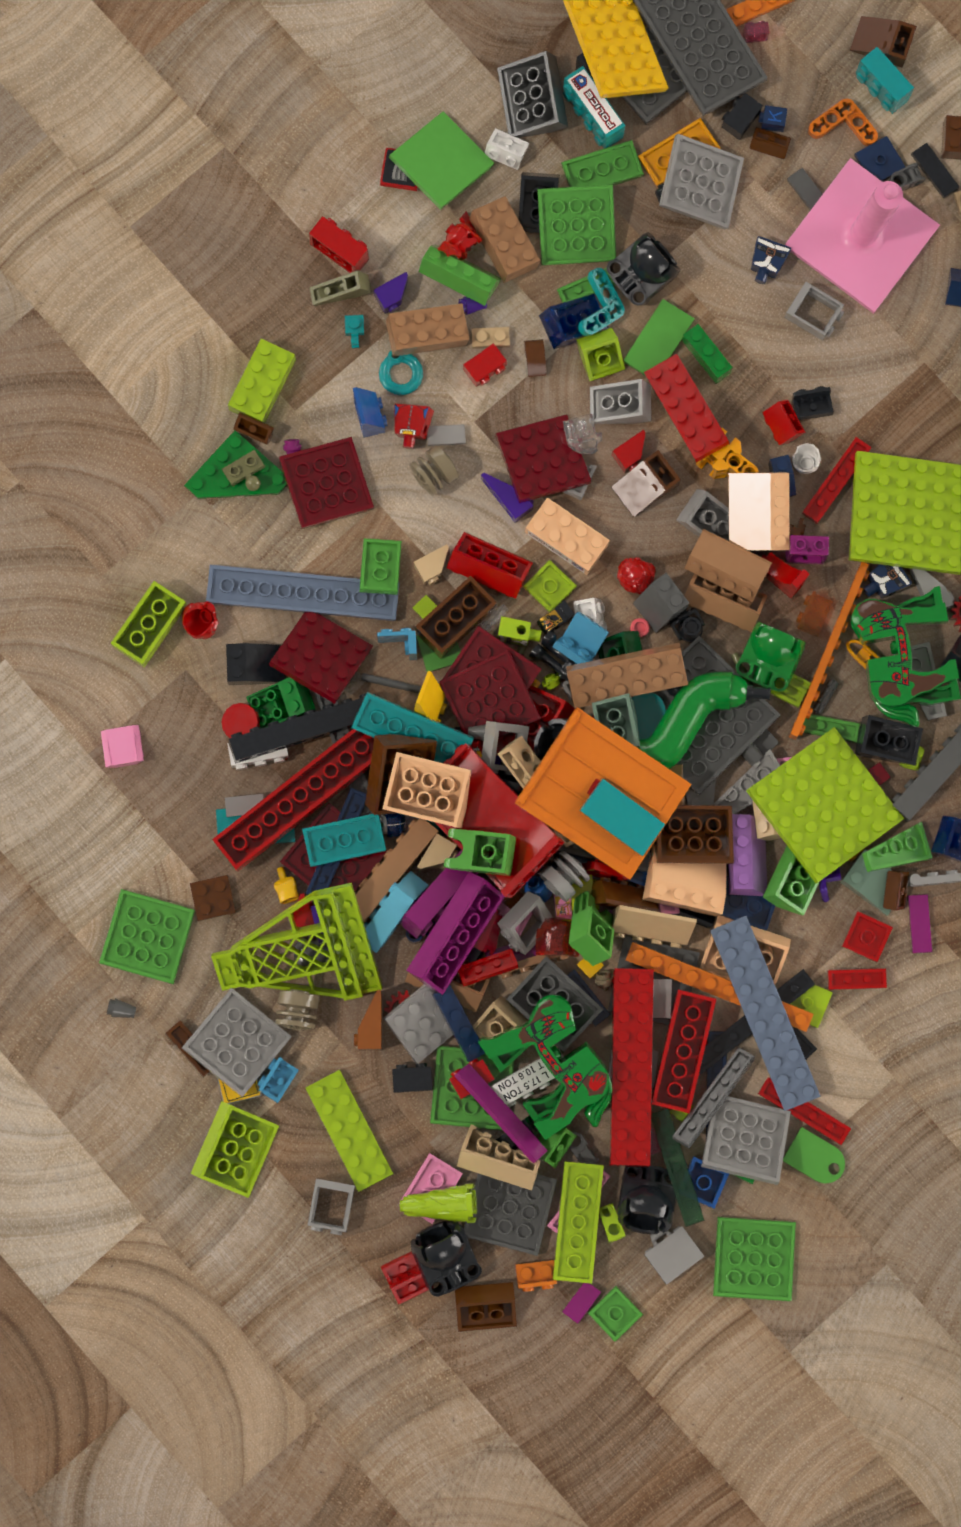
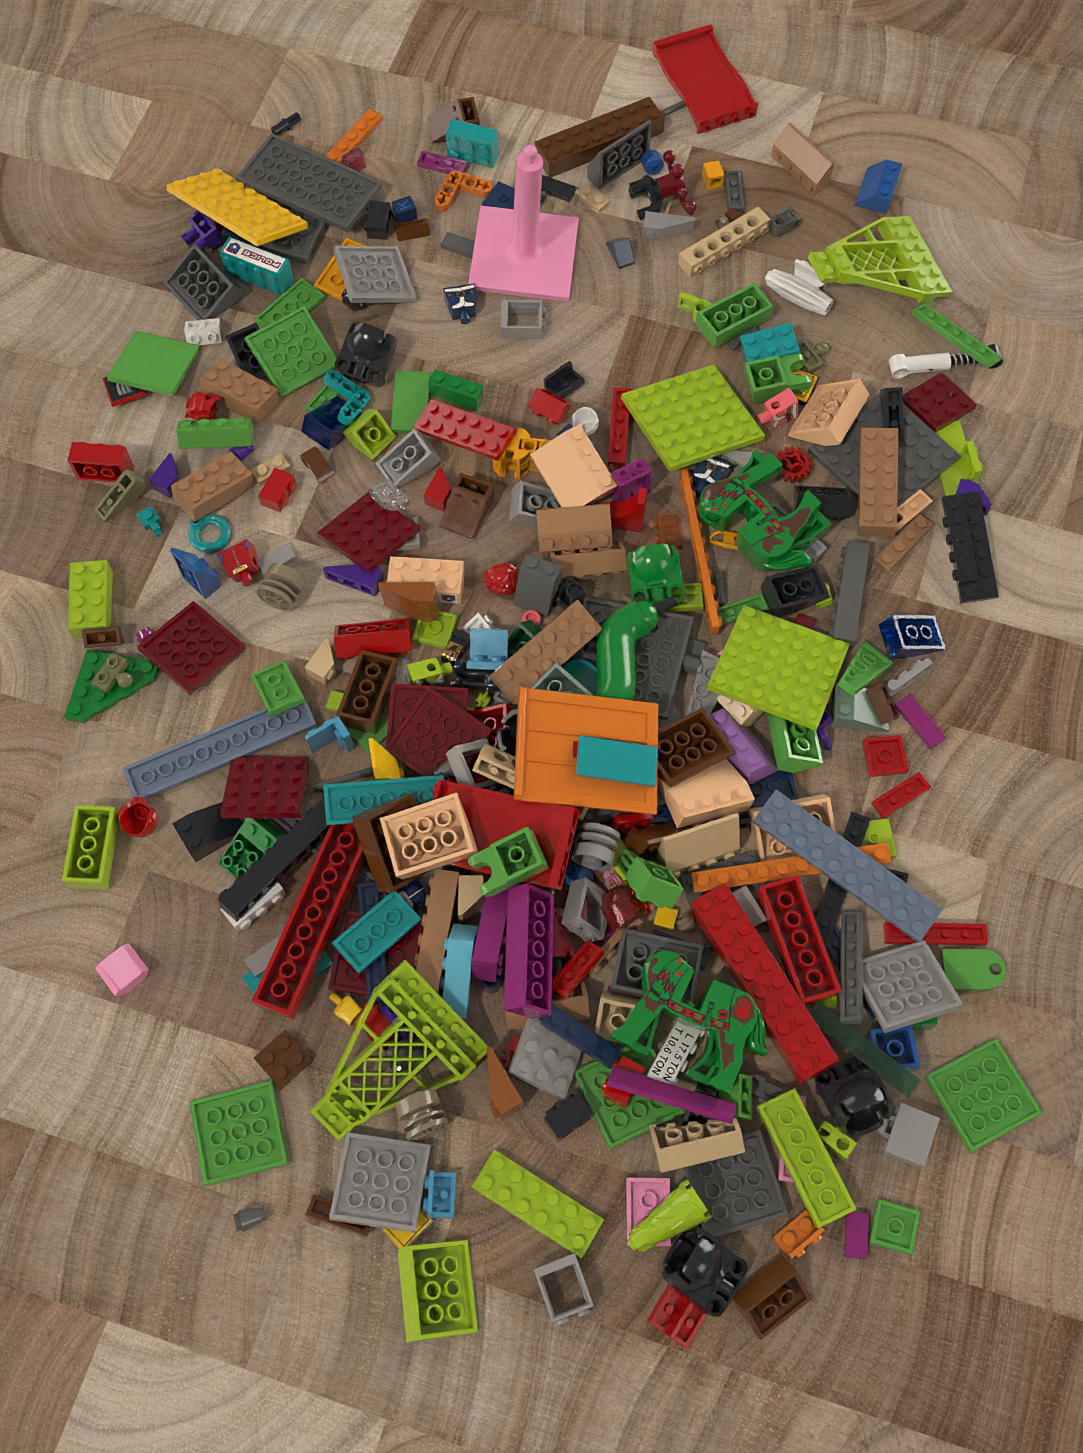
camera: 25 degrees left, 15 degrees down
(239, 718) = (217, 881): red tile -> none
(546, 555) = (412, 599): none -> dark orange slope
(567, 39) = (205, 229): none -> dark purple brick
(844, 81) = (441, 163): none -> magenta tile

